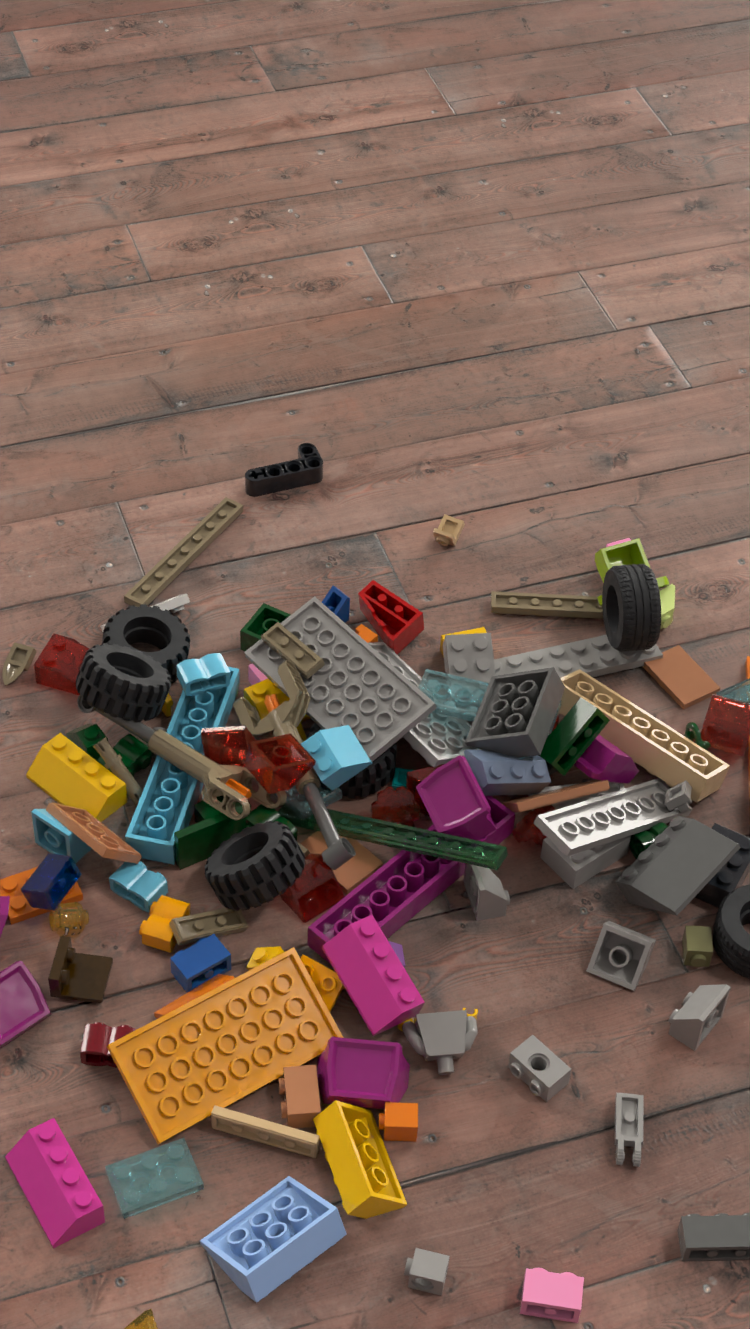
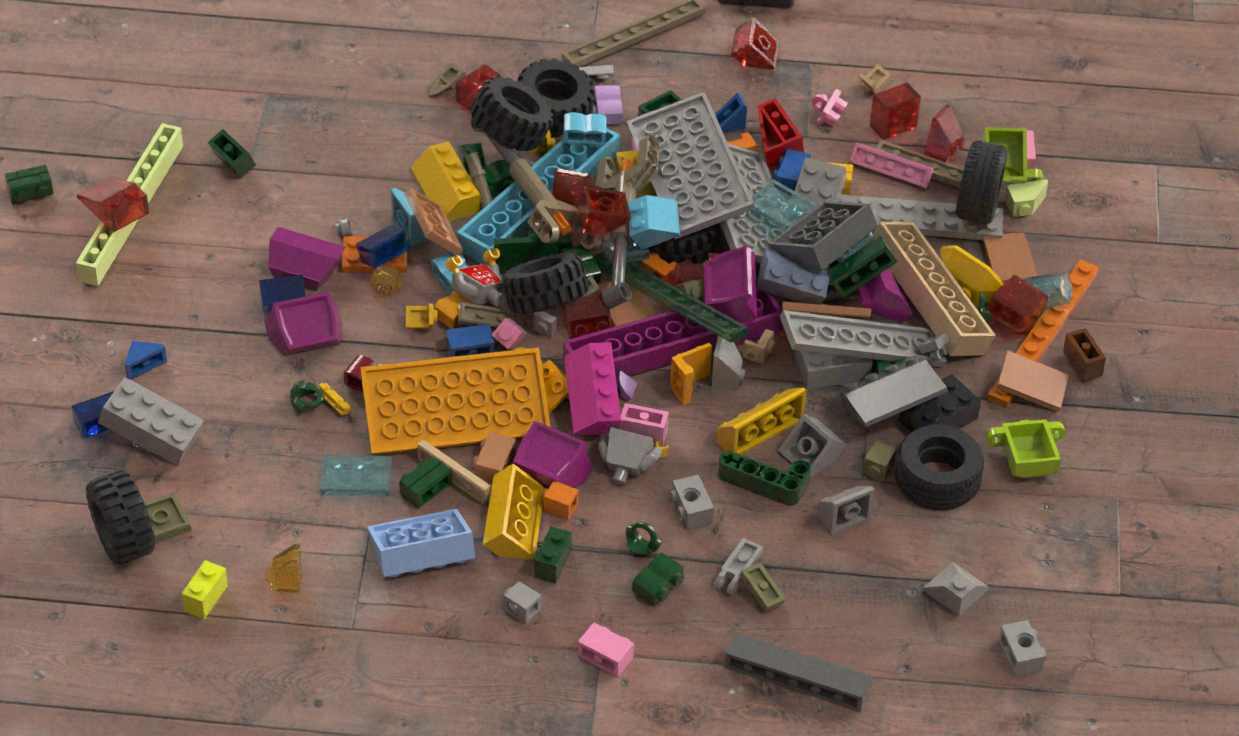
camera: 25 degrees right, 0 degrees up
(44, 1110) = (301, 389): none -> dark green piece
(55, 1184) = (280, 453): dark pink slope -> none
(78, 974) = (371, 321): dark brown bracket -> none
(80, 1088) = (334, 399): none -> yellow axle
(130, 950) = (420, 317): none -> yellow bracket
(180, 886) = (478, 282): none -> torso
(203, 637) = (608, 103): none -> lavender brick
(239, 1157) = (425, 481): none -> dark green brick
(240, 937) = (509, 333): none -> bright pink brick
(269, 912) = (545, 323): none -> light grey plate
(293, 650) = (663, 129): dark tan tile -> none
(313, 530) = (755, 46): none -> clear red slope
(354, 803) = (657, 266): none -> orange leg
(412, 816) = (694, 288): none -> olive brick
(422, 574) = (822, 104): none -> bright pink hips
(425, 651) = (790, 168): none -> blue brick
(430, 1195) = (553, 555): none -> dark green brick
(443, 992) = (645, 422): none -> bright pink brick
(451, 919) = (689, 368): none -> light orange bracket
(491, 557) = (895, 111): none -> clear red brick
(507, 866) = (759, 351): none -> tan bracket
(514, 1144) = (637, 543): none -> dark green piece
(515, 614) = (891, 165): none -> bright pink tile
(554, 570) = (945, 135): none -> clear red slope
(556, 945) = (762, 421): none -> yellow slope
(557, 1180) = (658, 579): none -> dark green brick
(560, 1009) = (765, 480): none -> dark green beam
(666, 705) = (970, 273): none -> yellow wedge
(670, 1145) = (762, 587): none -> olive plate

